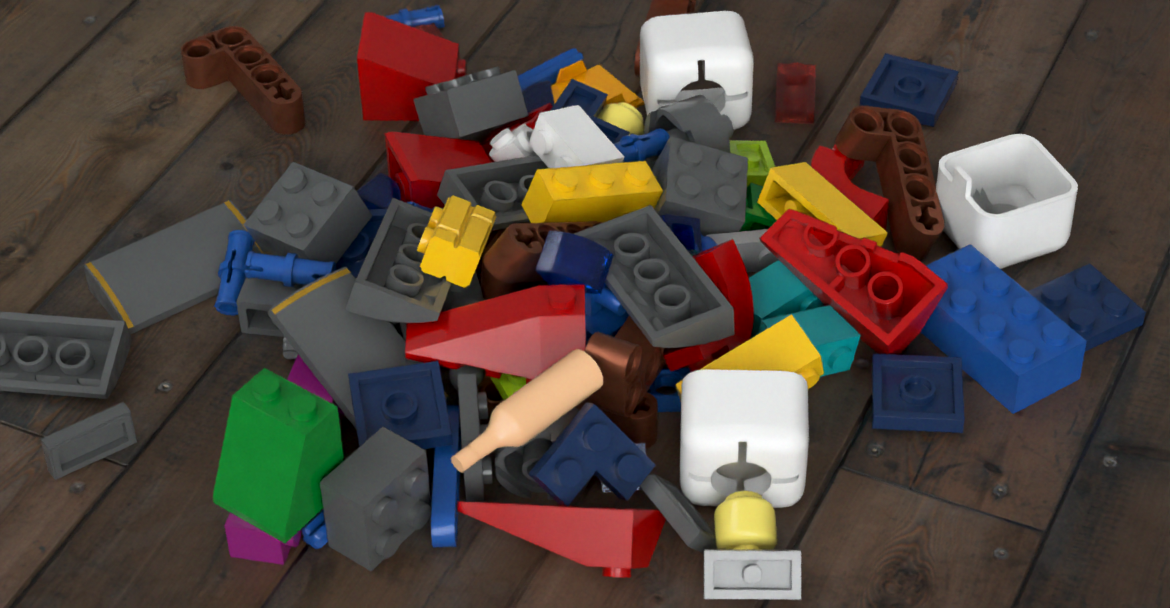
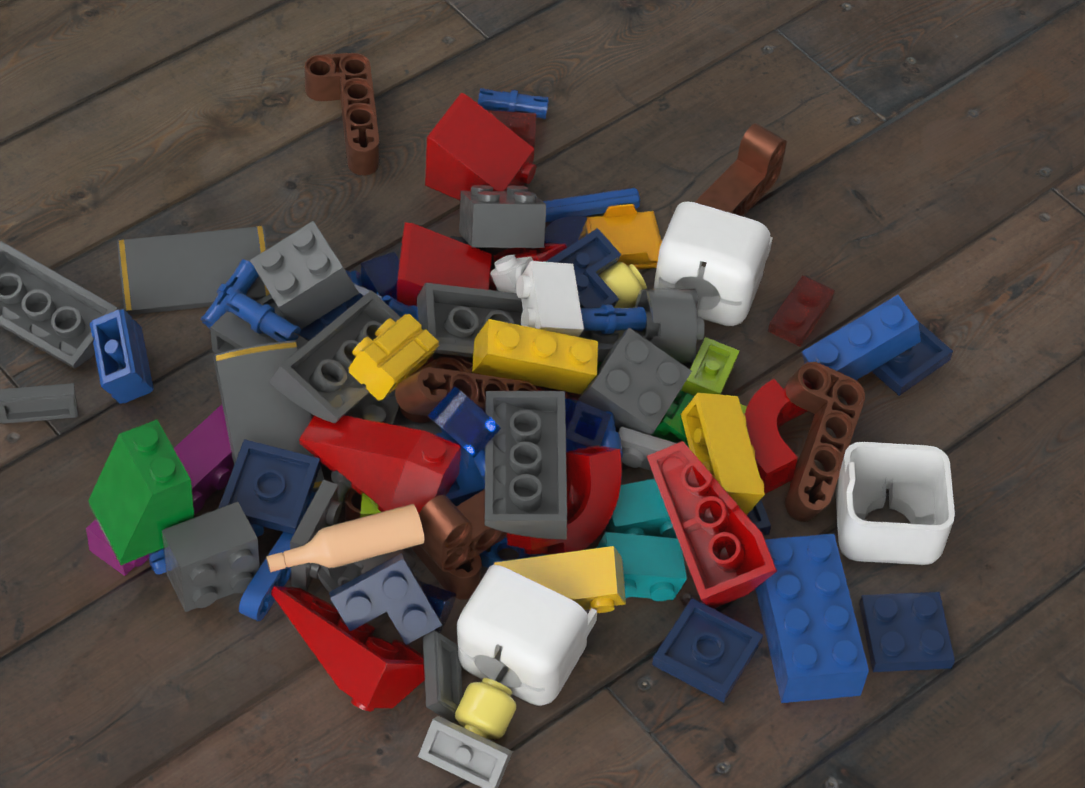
camera: 20 degrees right, 10 degrees up
(156, 362) = (121, 356): none -> blue brick
(887, 77) = (868, 340): none -> blue brick

